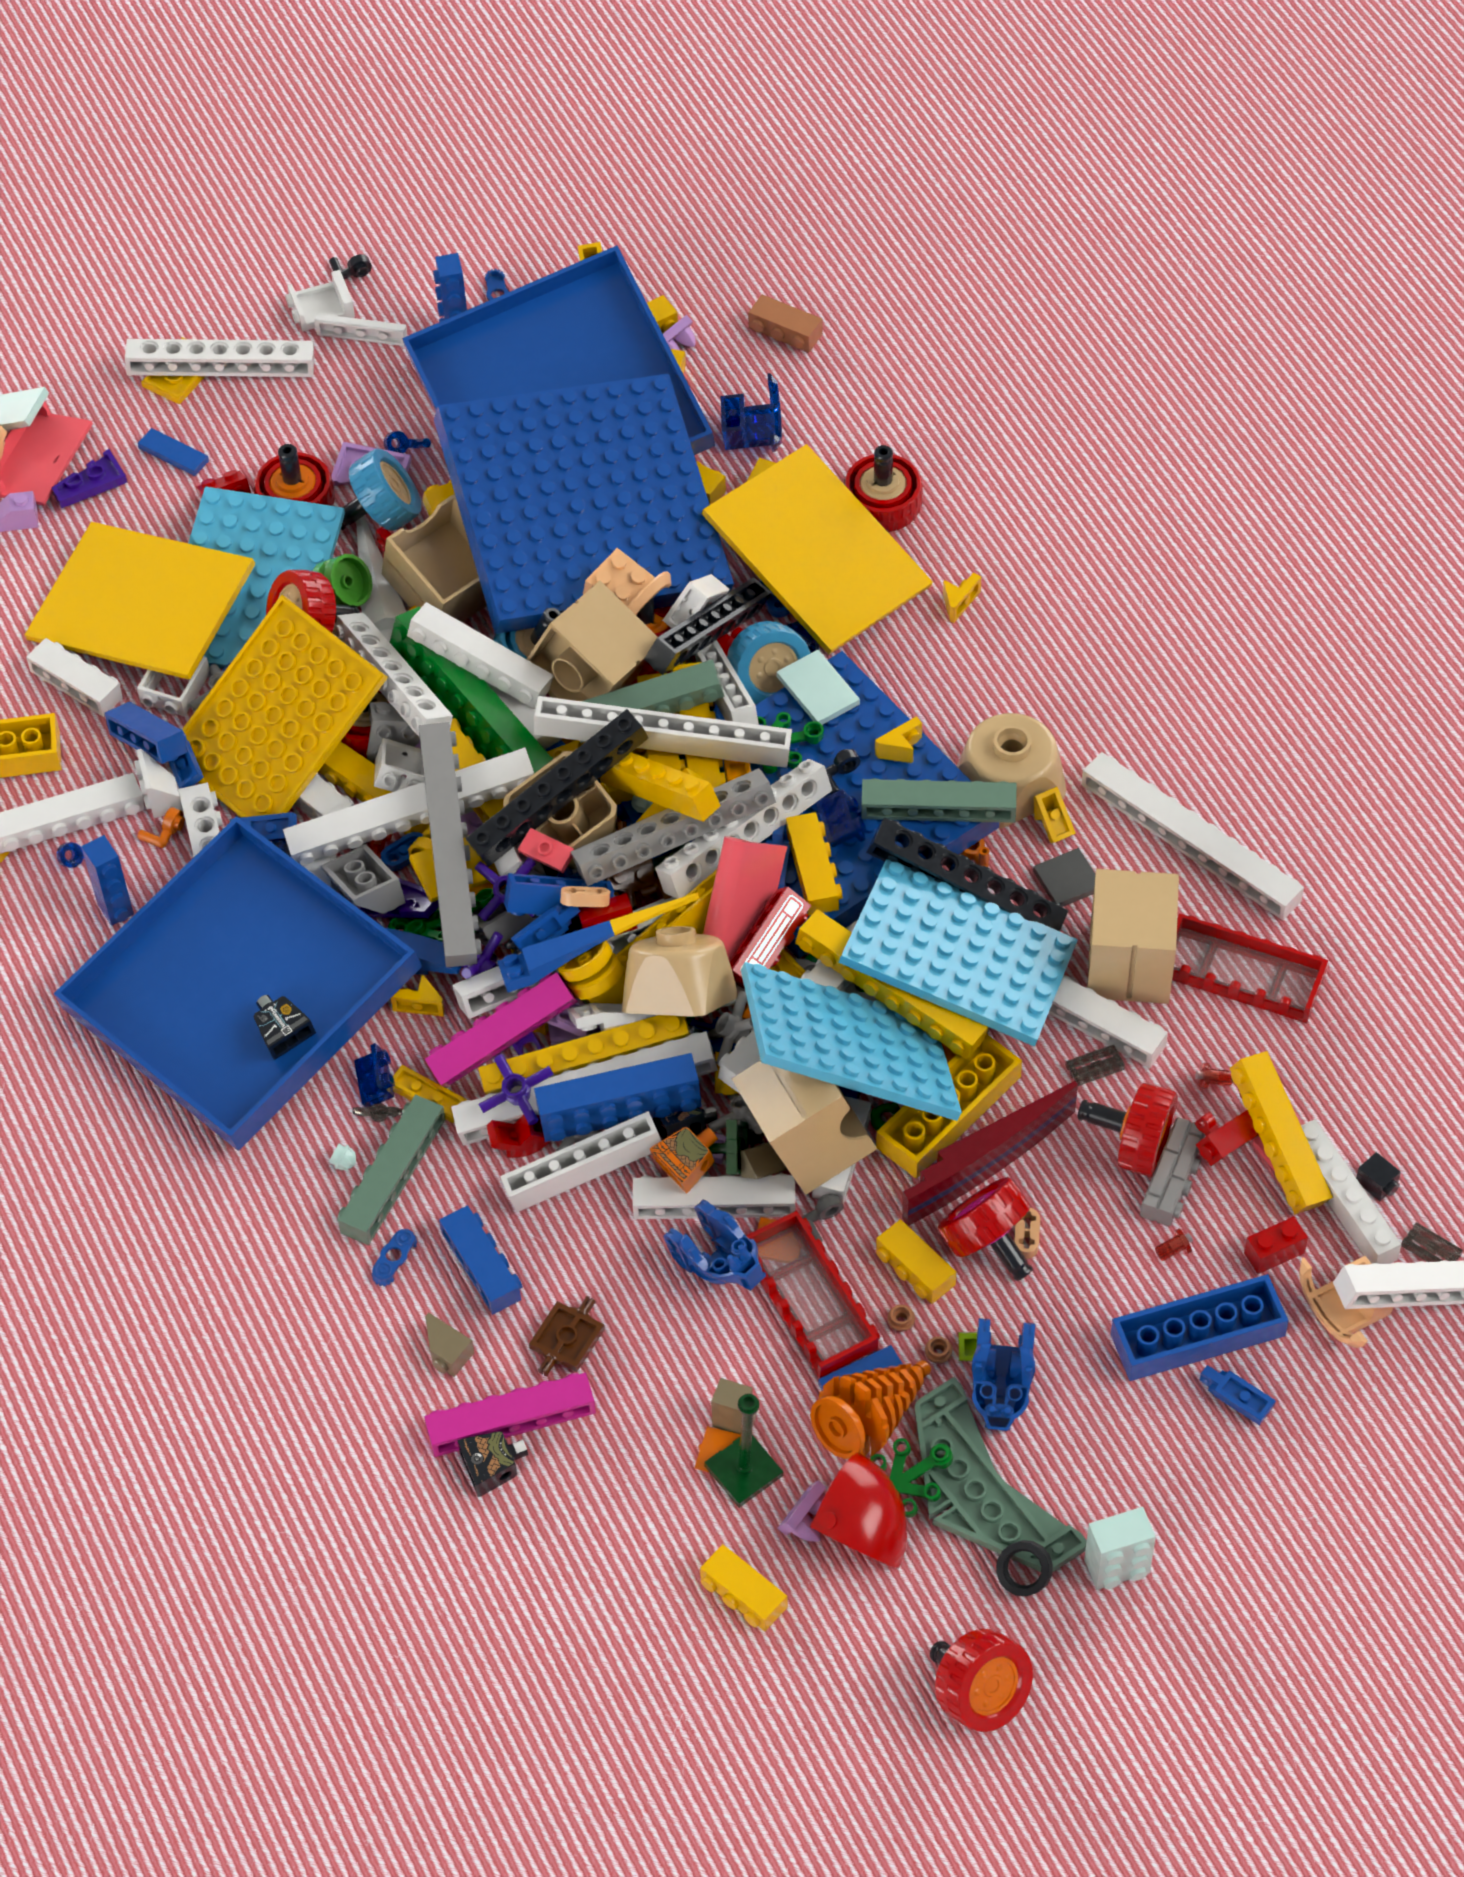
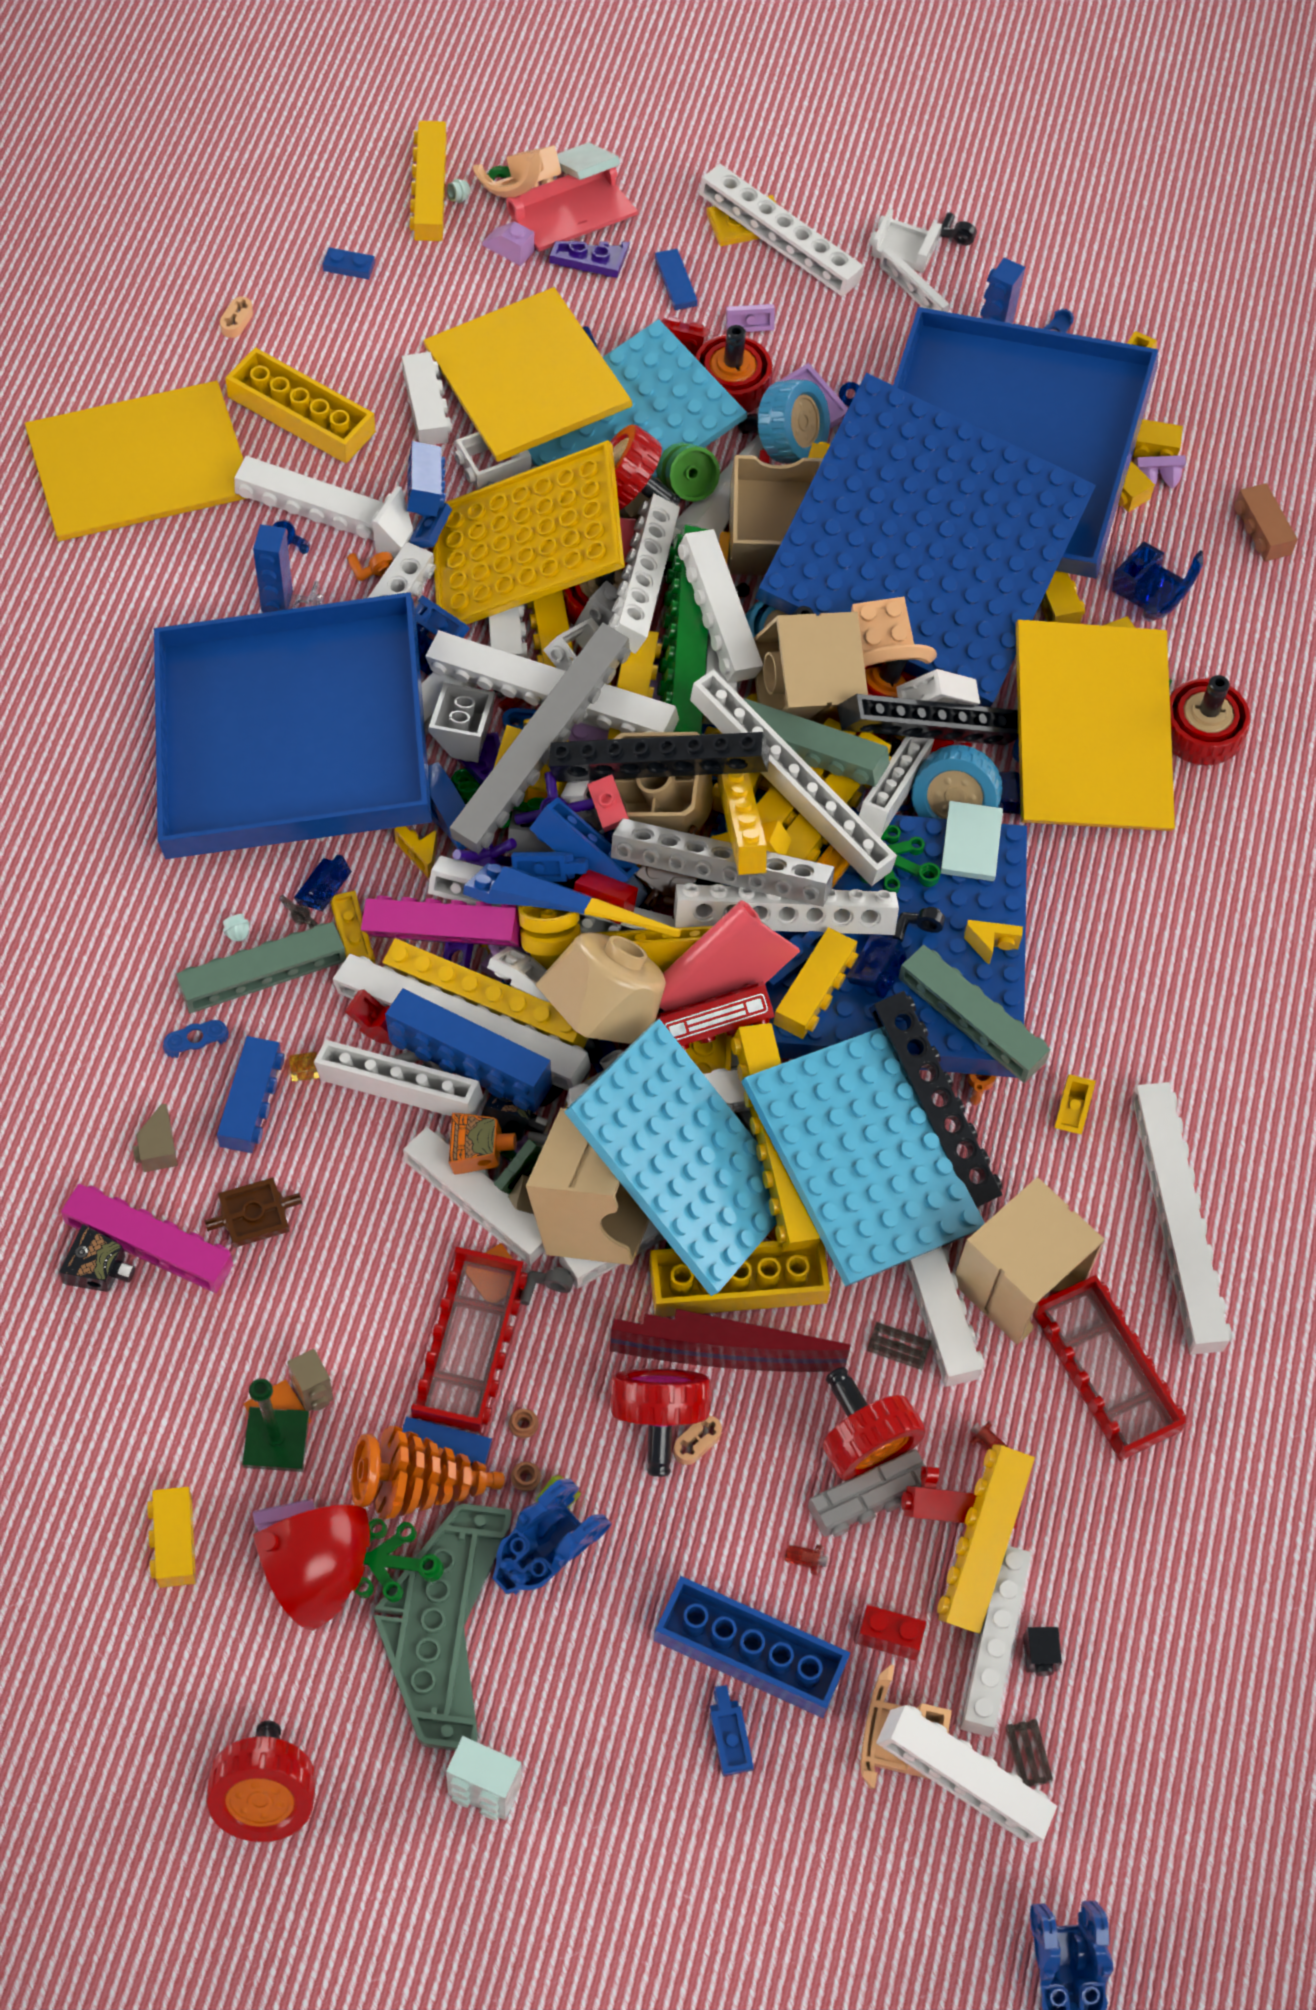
camera: 35 degrees right, 5 degrees up
(149, 889) = (314, 599): none -> clear bracket
(263, 440) = (751, 317): none -> lavender tile
(281, 1025) = (281, 784): black torso -> none
(495, 1212) = (303, 1066): none -> clear yellow slope
(521, 1097) = (401, 969): dark purple bar -> none
(585, 896) = (597, 864): light nougat beam -> none
(735, 1253) = (427, 1261): blue animal -> none
(915, 1262) = (579, 1386): yellow brick -> none
(959, 598) = (1182, 860): yellow slope -> none
(1004, 1576) = (380, 1723): black tyre -> none
(1014, 751) = (1085, 1029): tan piece -> none
(1066, 877) = (1036, 1159): dark grey tile -> none

